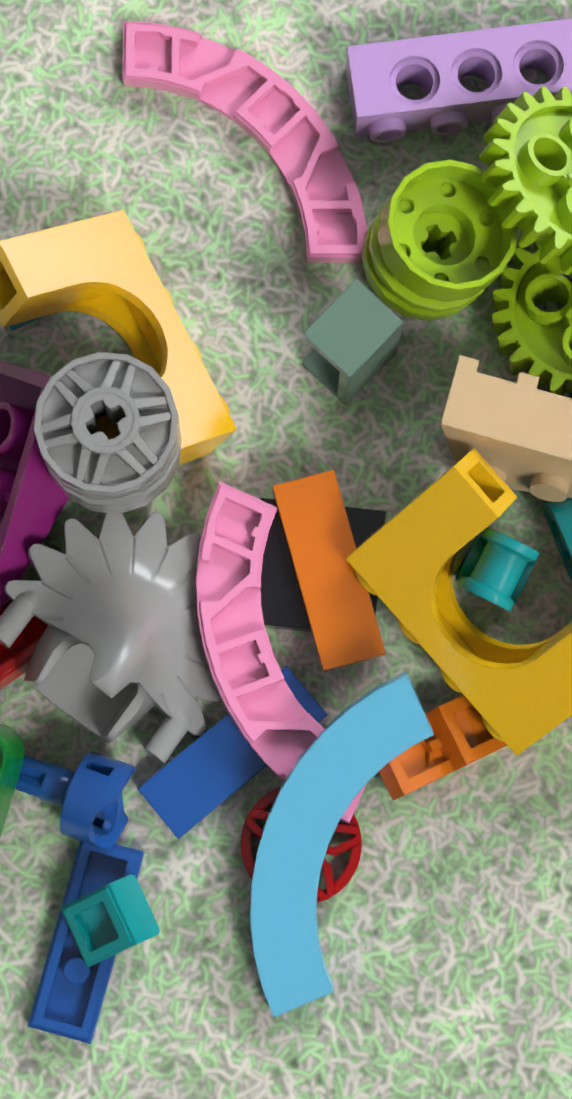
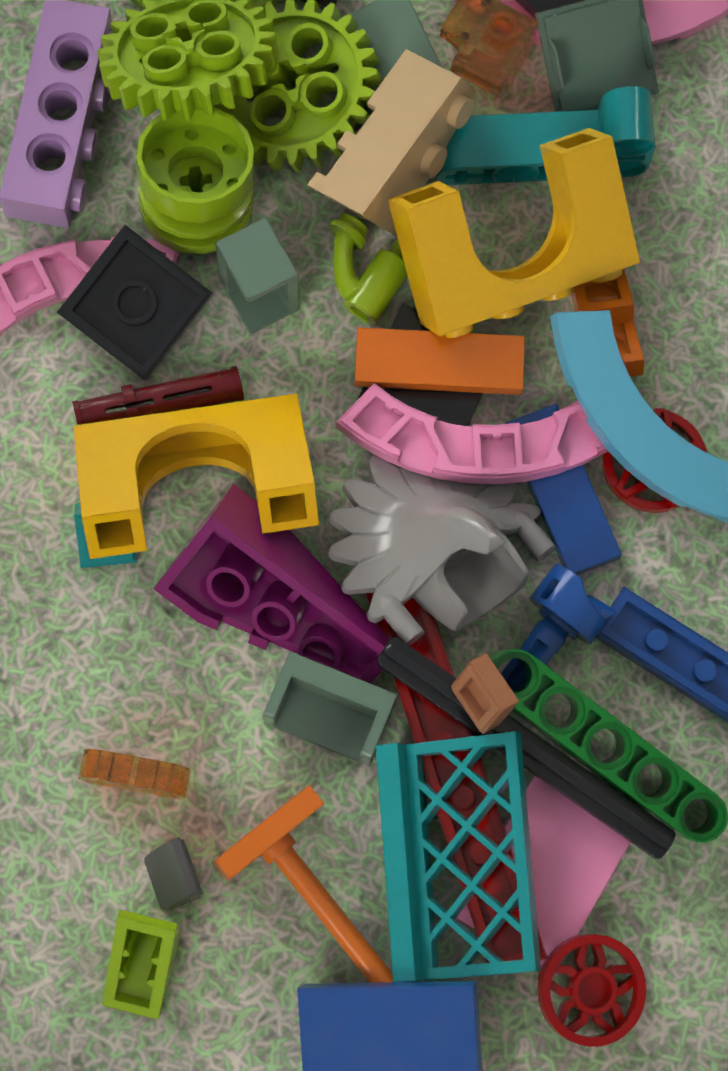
camera: 75 degrees left, 5 degrees down
(86, 465) = (291, 504): light grey wheel -> none
(110, 920) = (674, 628): teal slope -> none
(228, 351) = (223, 385): none -> dark red pin
(287, 230) = (135, 303): none -> black tile
(396, 477) = (380, 281): none -> lime plant
(496, 568) = (489, 221): teal piece -> none

